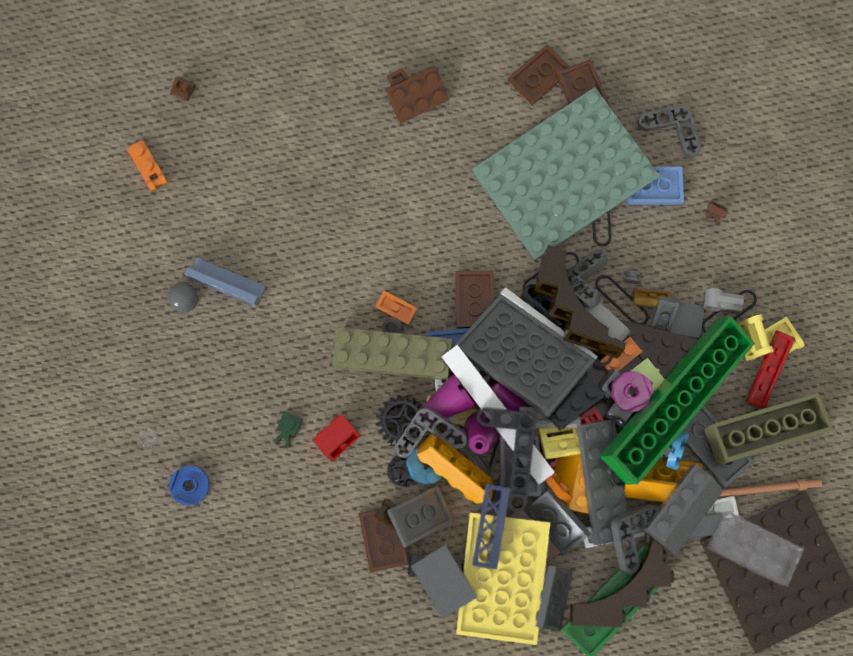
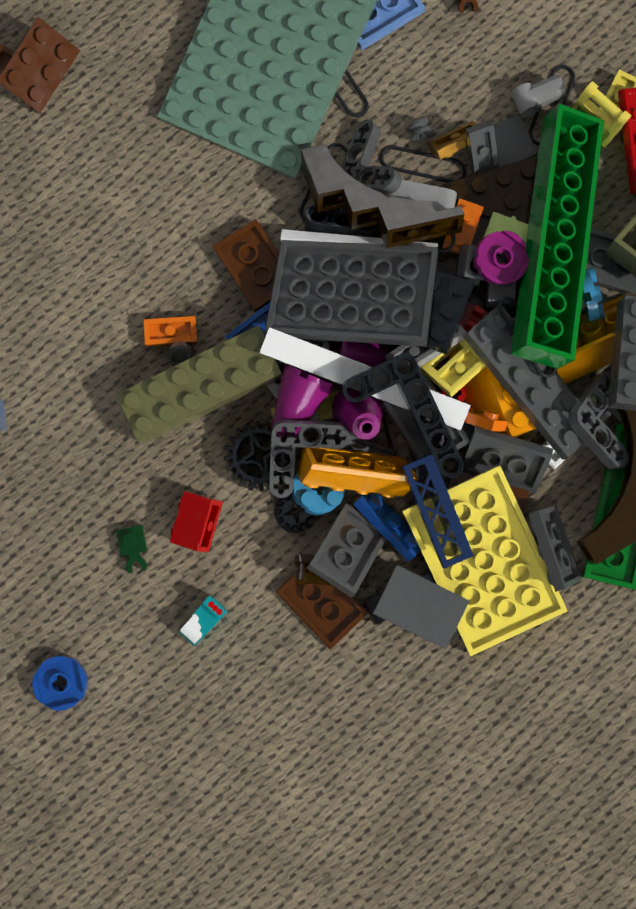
camera: 30 degrees left, 5 degrees up
(302, 503) = (203, 620): none -> teal leg
(456, 515) = (388, 524): none -> blue plate

